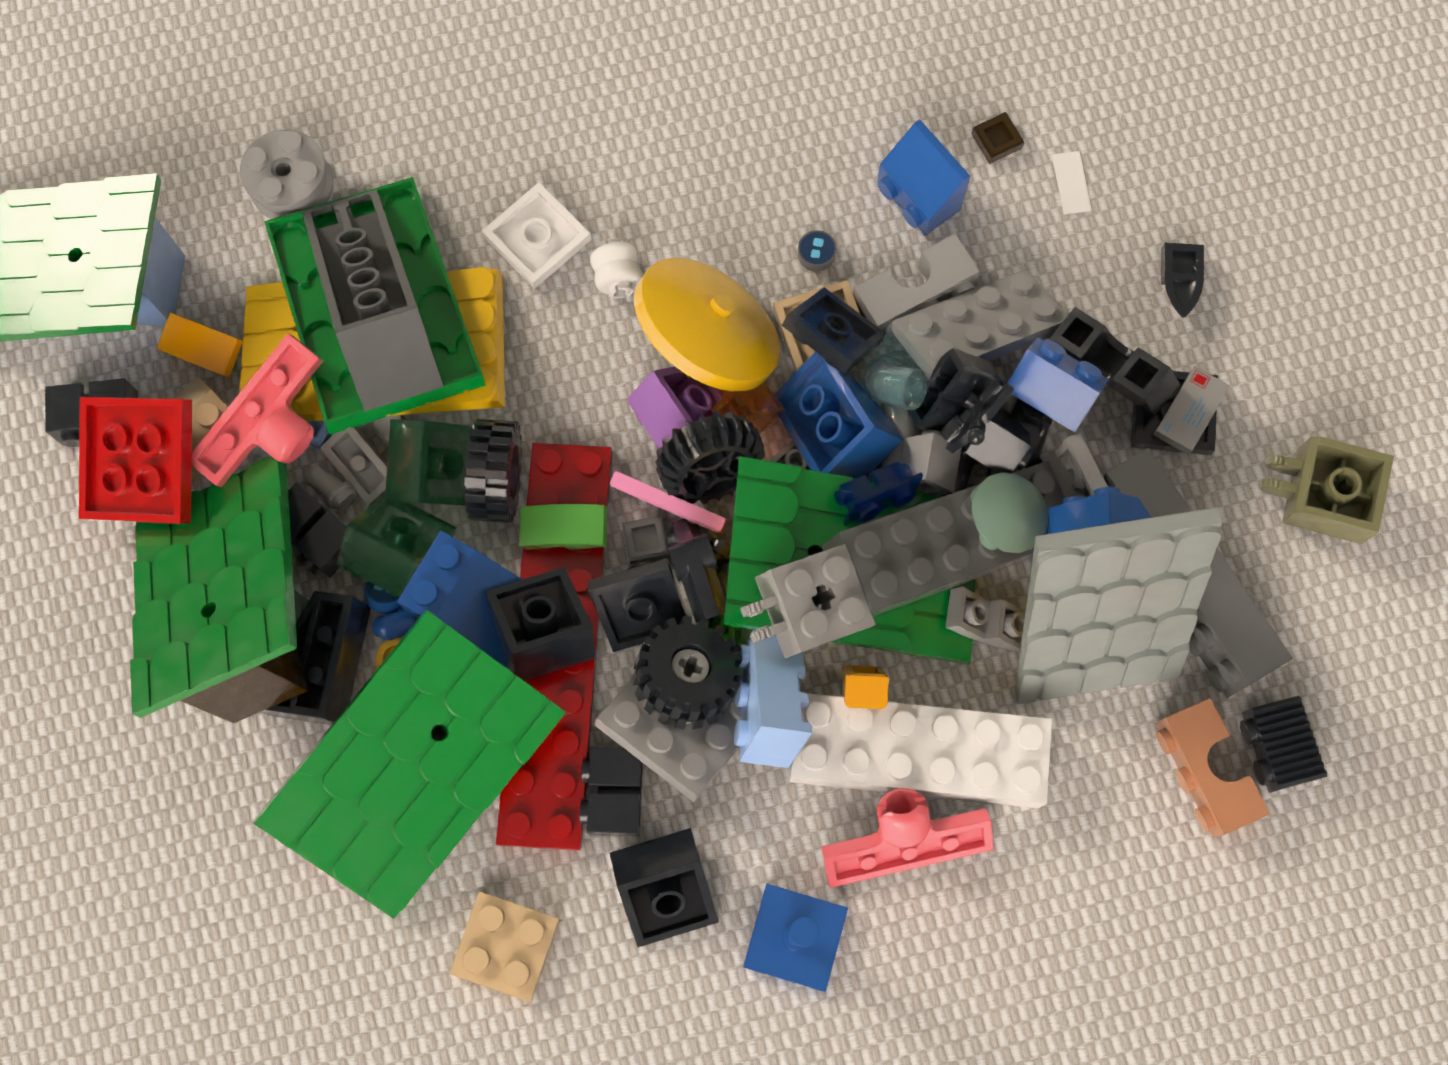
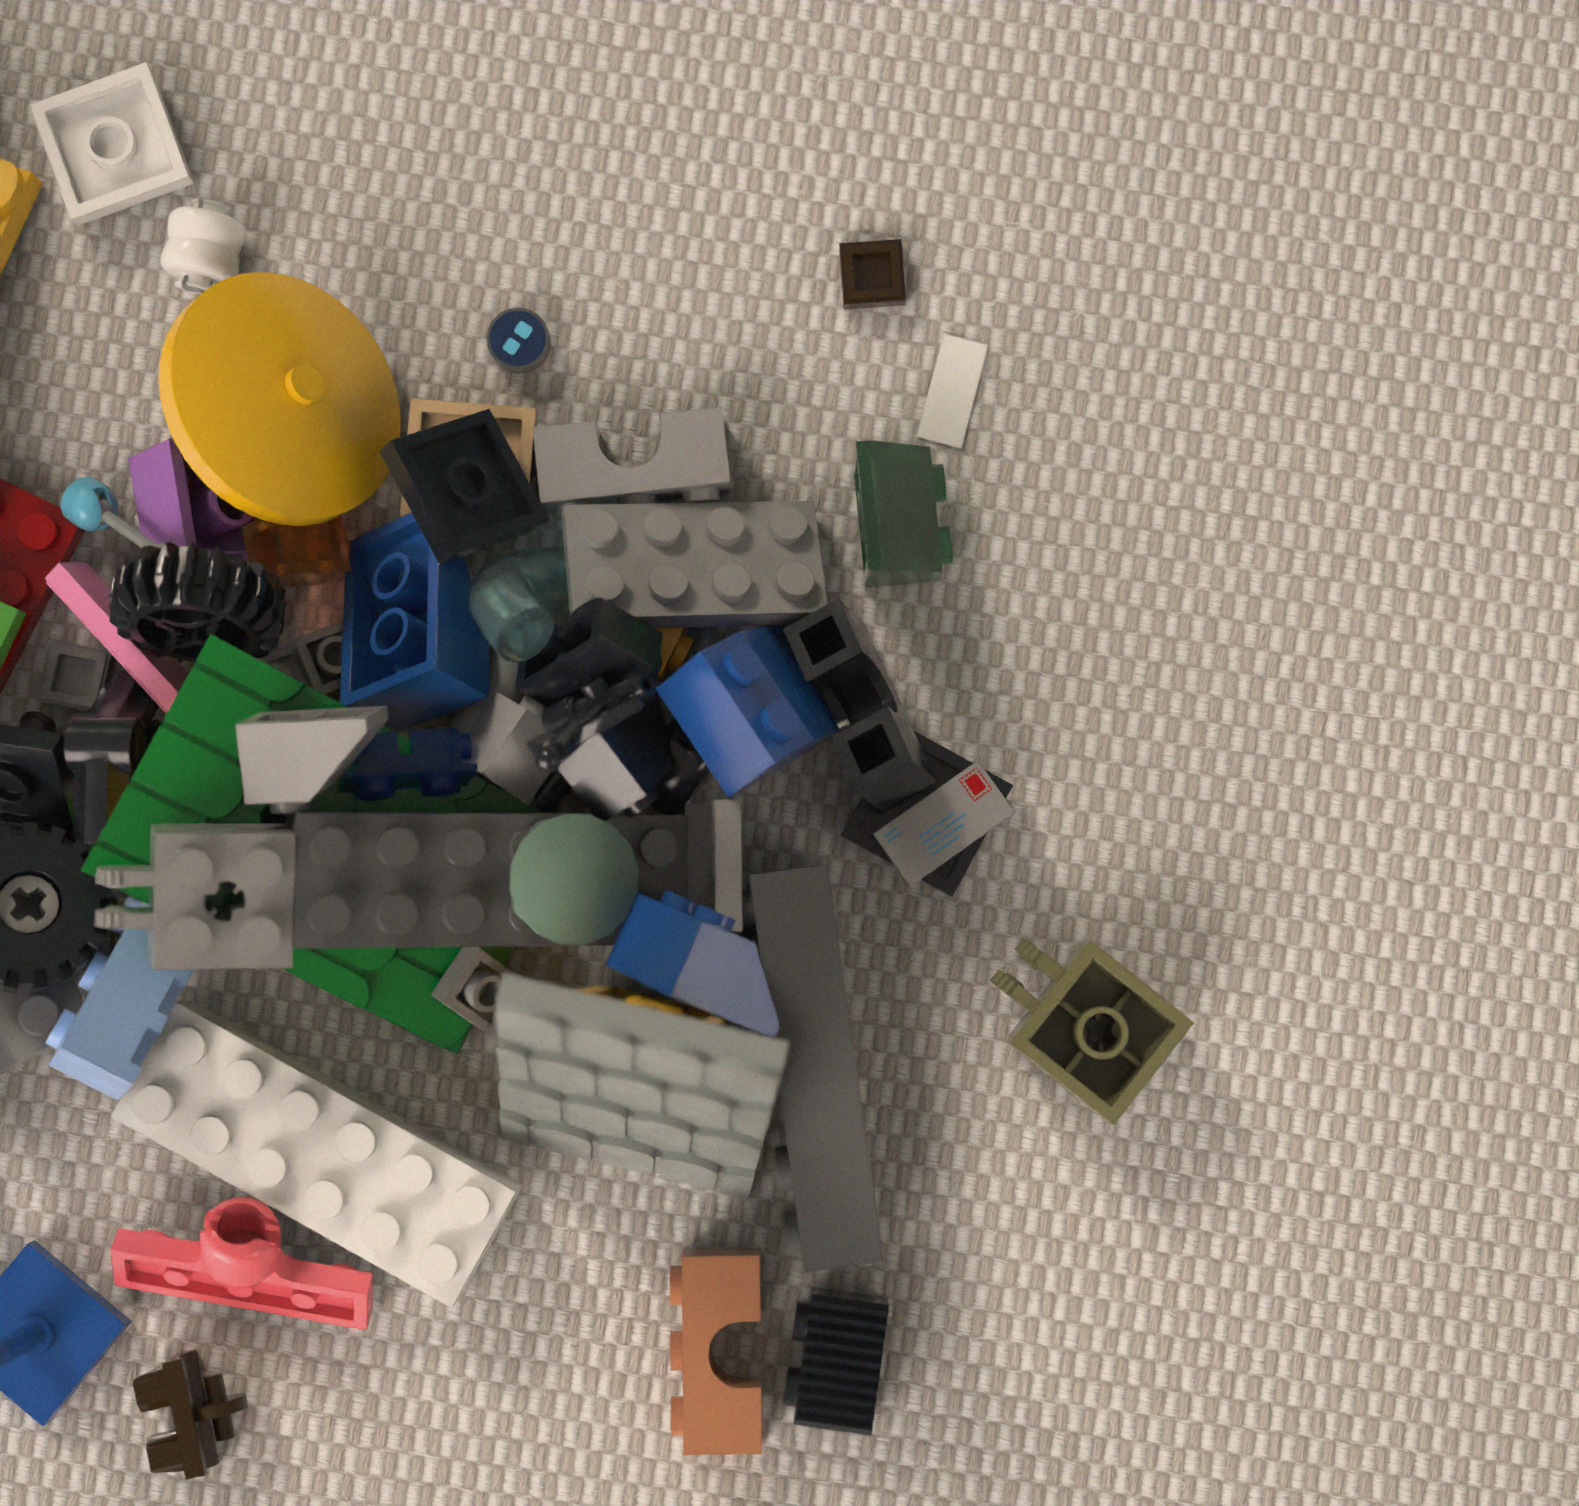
camera: 20 degrees right, 10 degrees up
(616, 436) = (94, 513): none -> medium azure hinge
(826, 499) = (301, 753): none -> light grey slope
(865, 686) = (274, 1030): light orange slope -> none
(921, 963) = (192, 1441): none -> dark brown hips
(923, 179) = (712, 302): blue slope -> none
(1078, 254) = (899, 513): none -> clear green slope
(1182, 275) = (1039, 610): black plate -> none

